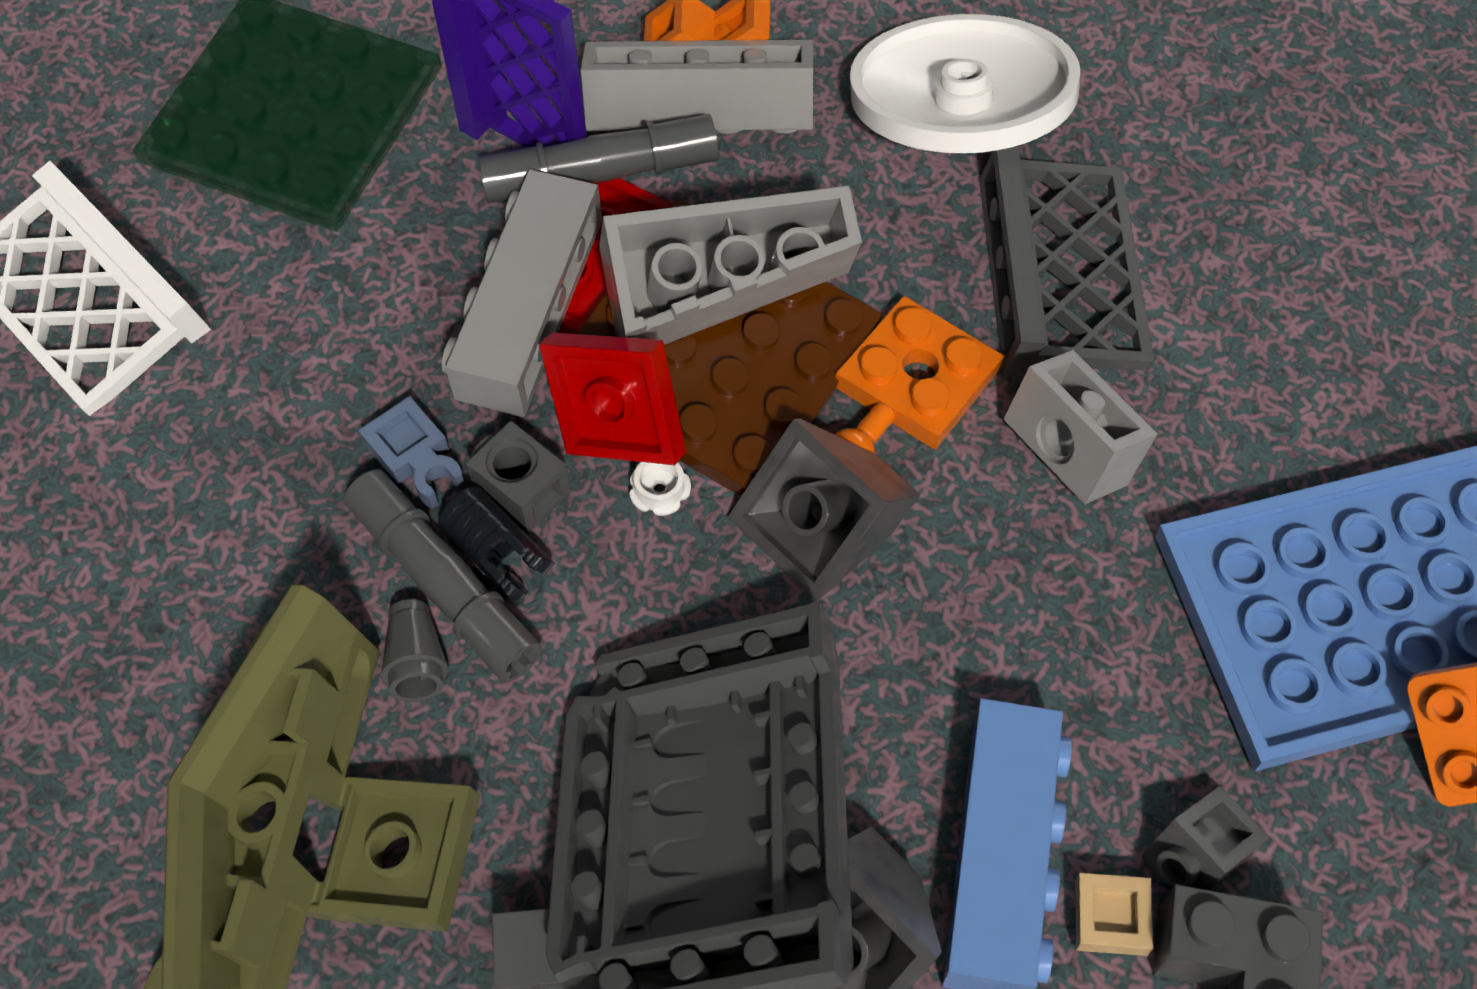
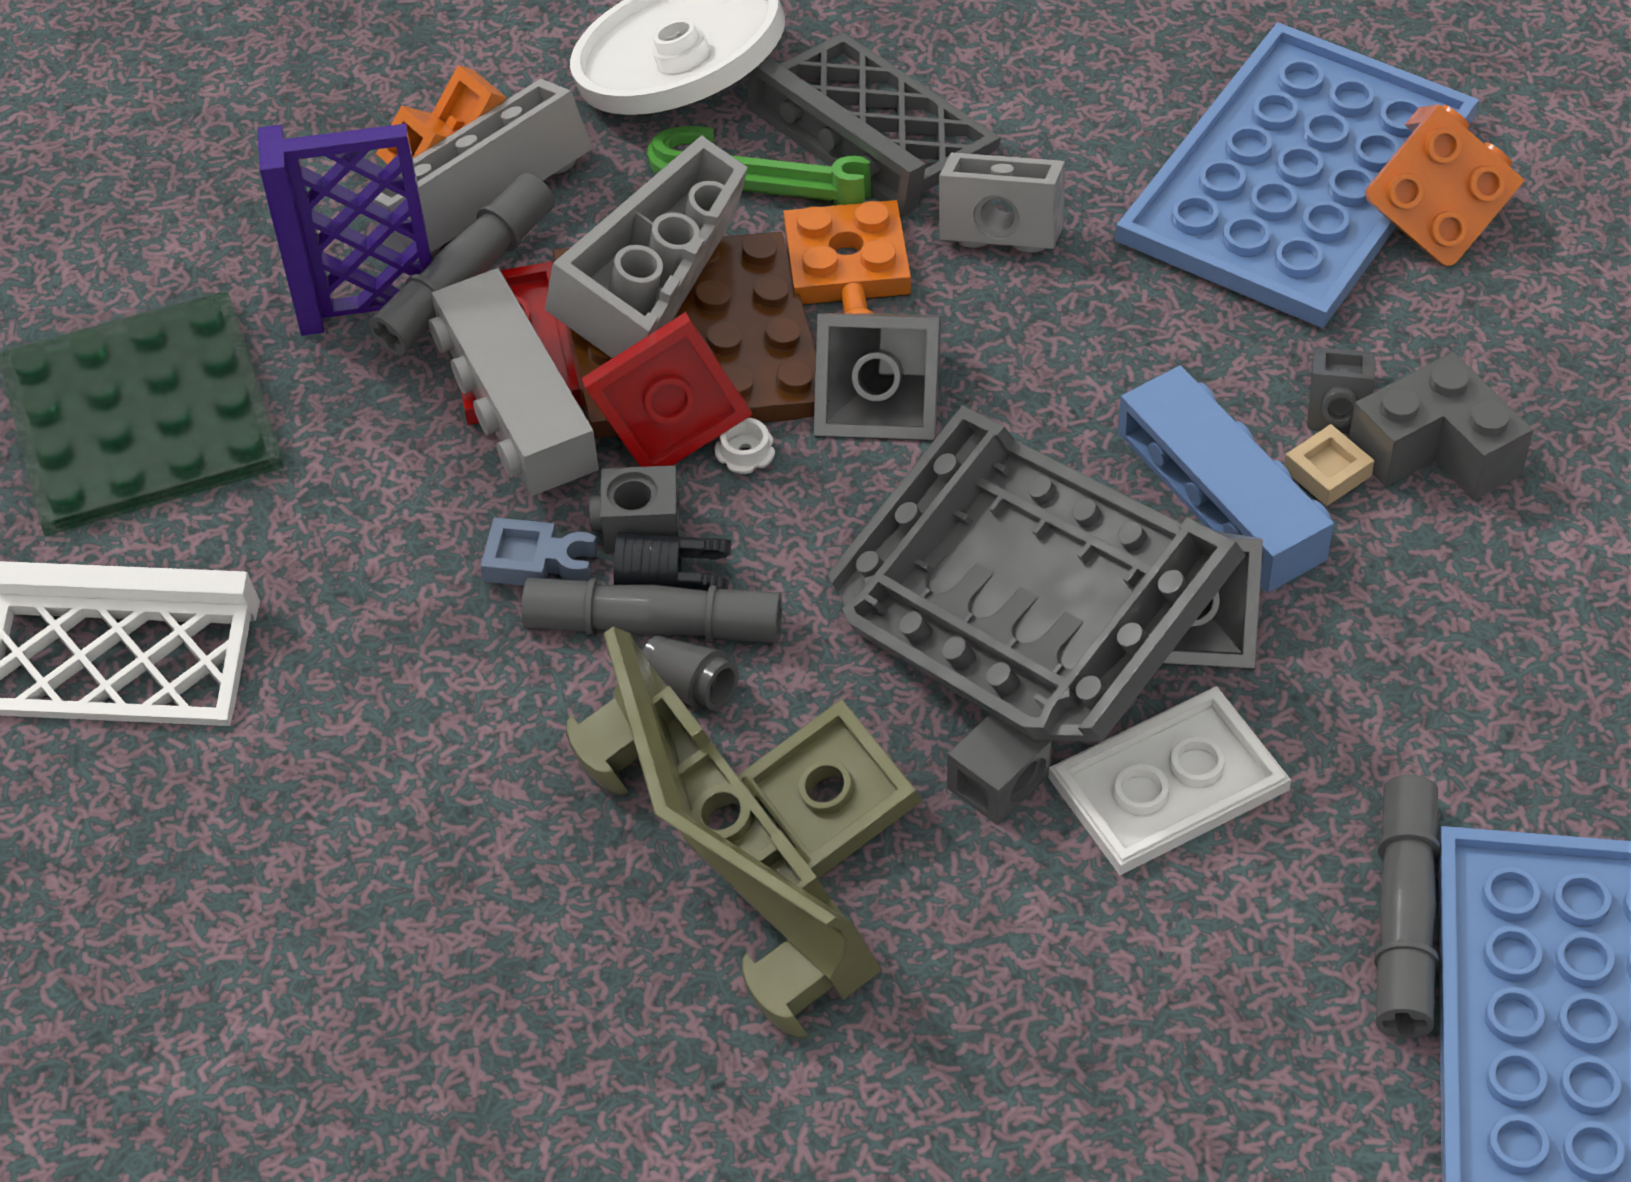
camera: 40 degrees left, 10 degrees down
(968, 301) = (843, 183): none -> bright green piece

